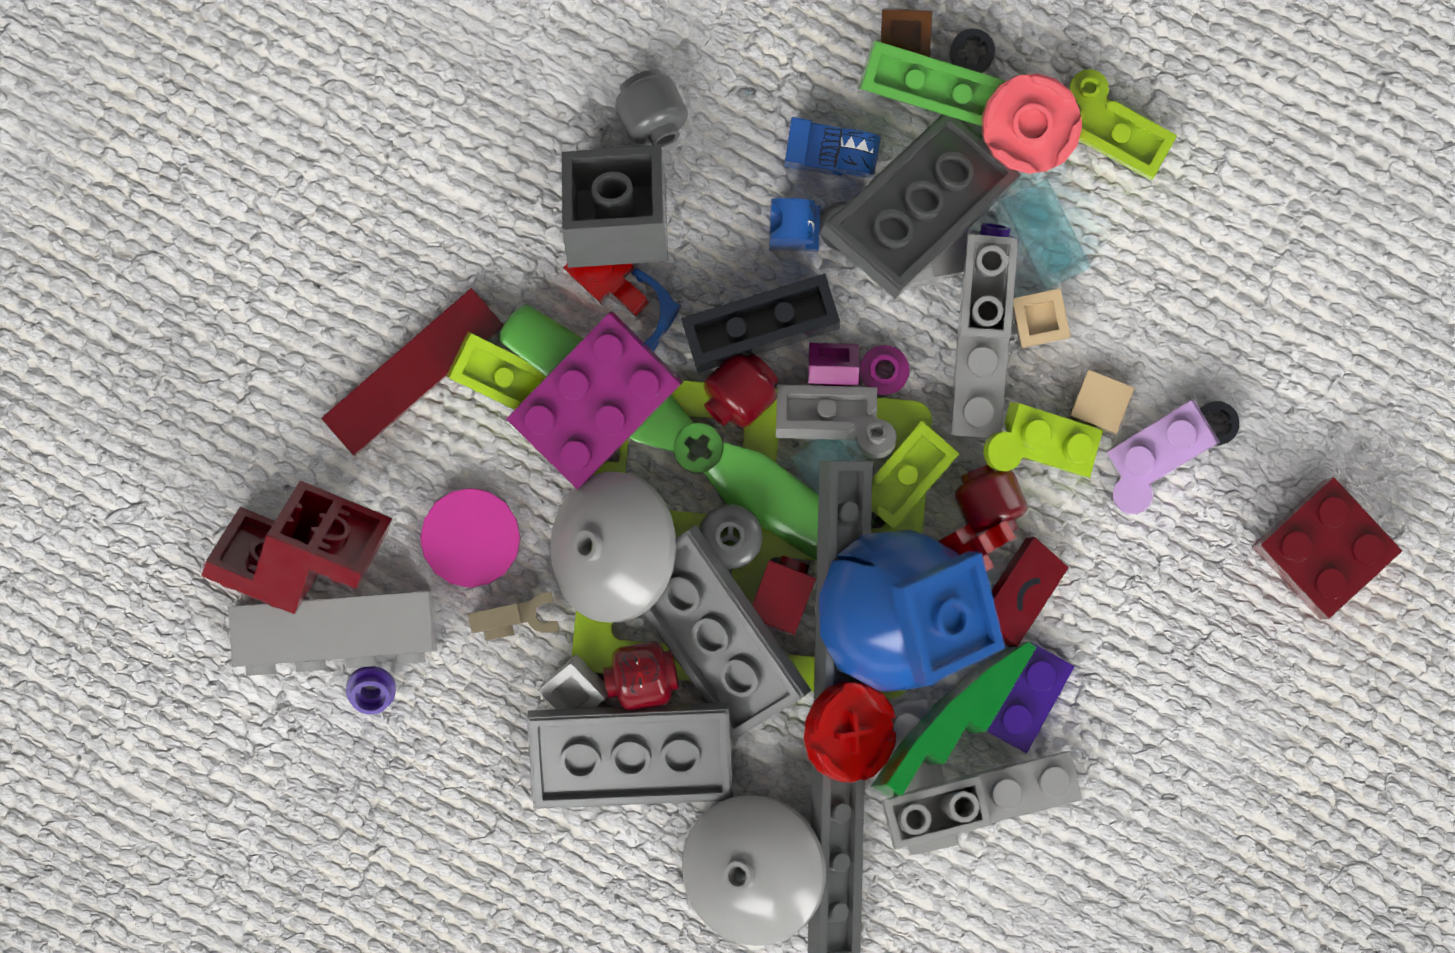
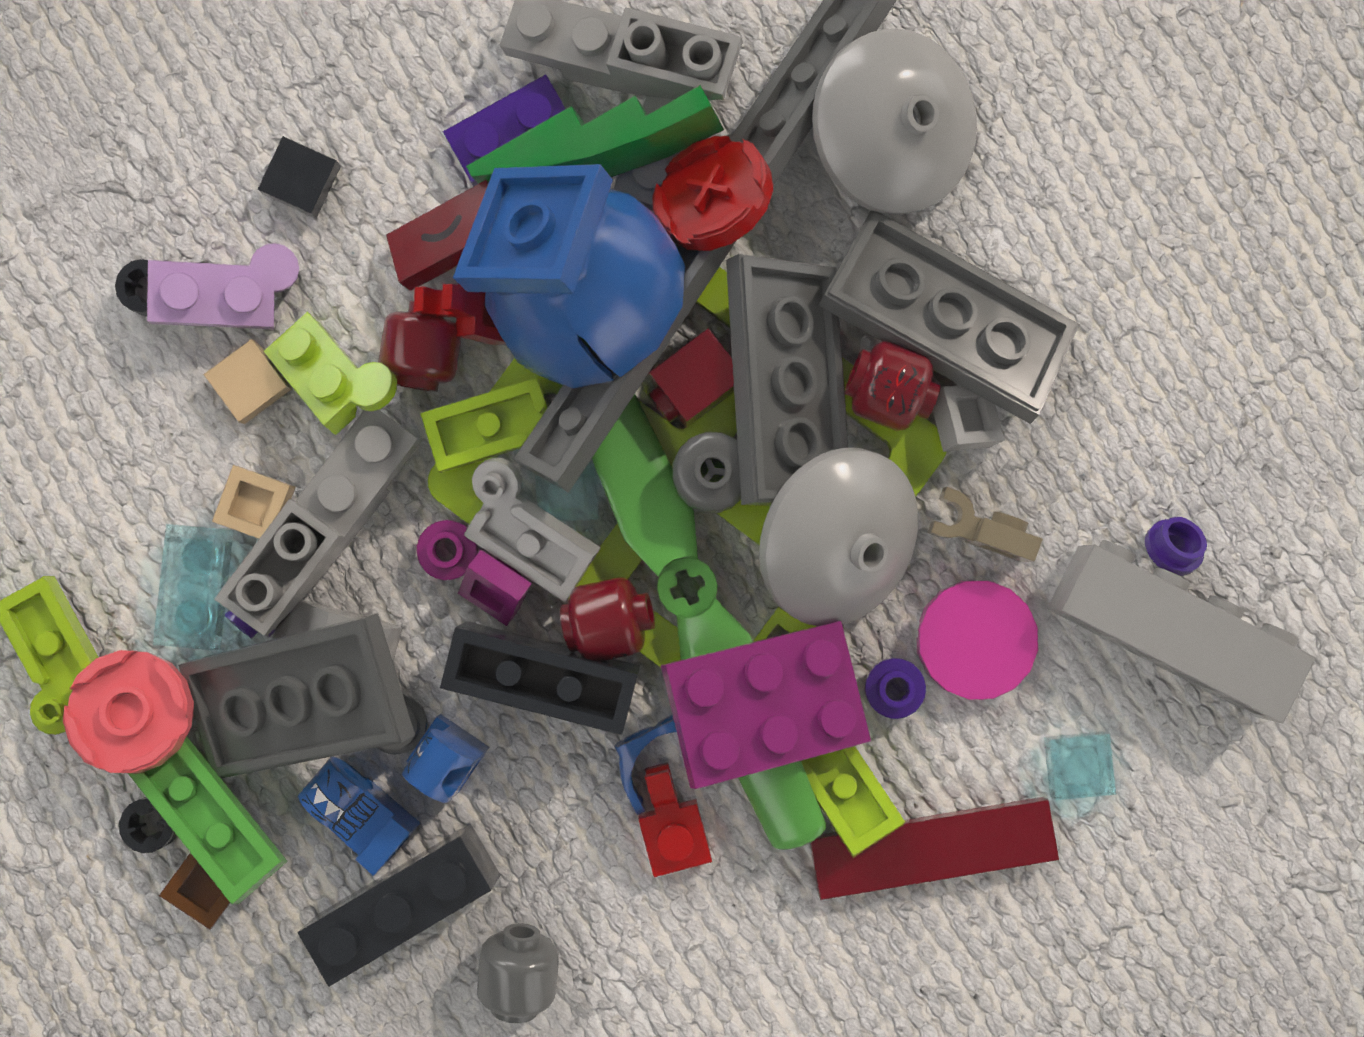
camera: 150 degrees left, 0 degrees up
(308, 538) = (1178, 742): dark red bracket -> none
(348, 484) = (1079, 765): none -> clear light blue plate
(522, 475) = (879, 677): none -> dark purple plate
(614, 206) = (620, 897): dark grey brick -> none
(761, 107) = (399, 905): none -> black brick
(1158, 570) = (299, 177): none -> black tile
(1327, 548) = (109, 88): dark red brick -> none

